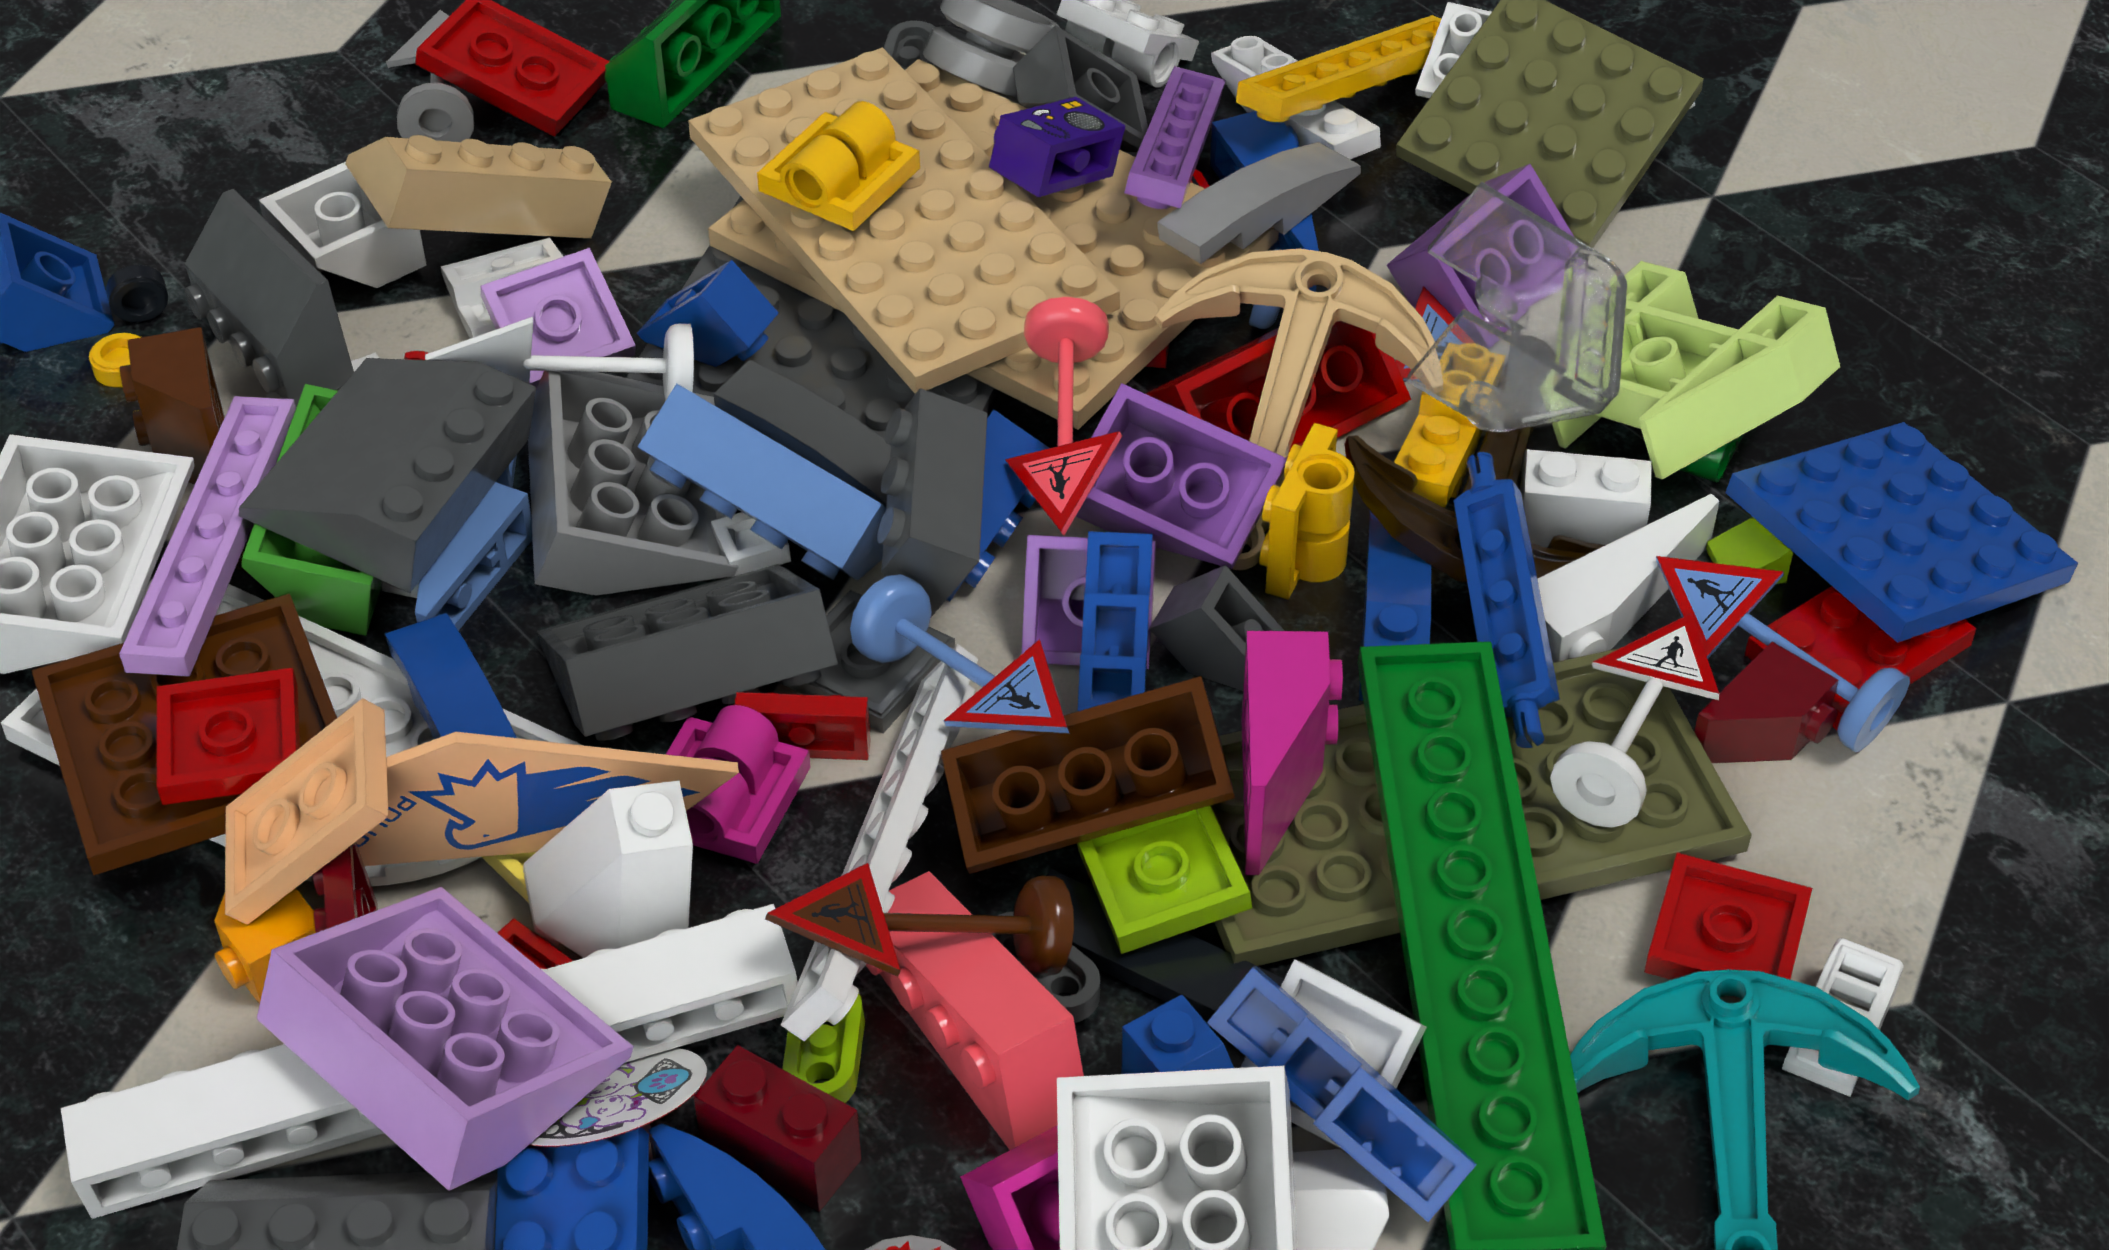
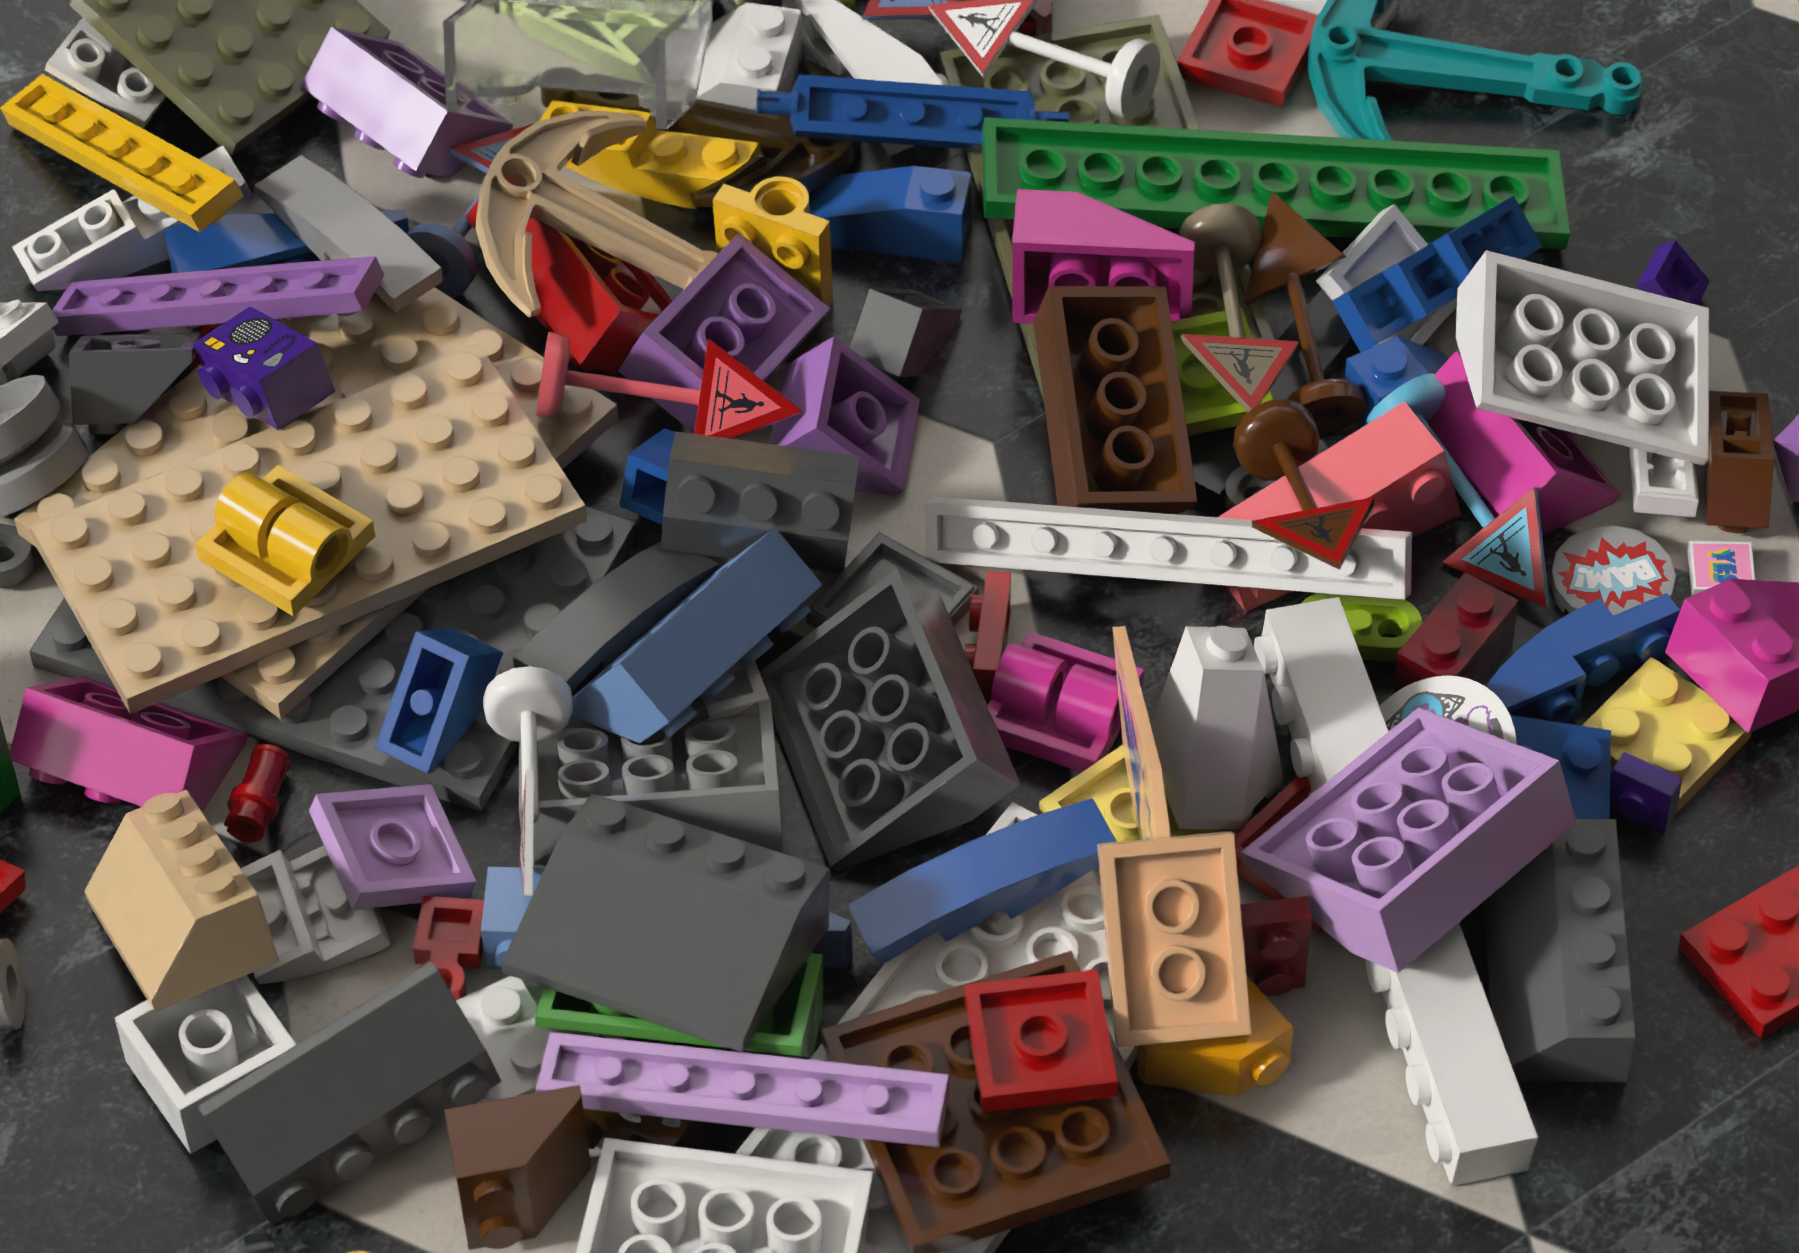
camera: 85 degrees left, 5 degrees up
(631, 246) = (255, 800): none -> red pin
(664, 178) = (89, 738): none -> dark pink slope
(894, 621) = (1028, 434): medium blue piece -> none
(947, 1173) = (1509, 546): none -> medium azure piece
(1115, 617) = (956, 402): blue slope -> none
(1151, 886) = (1225, 242): none -> dark tan piece
(1316, 934) = (1286, 255): none -> reddish brown piece

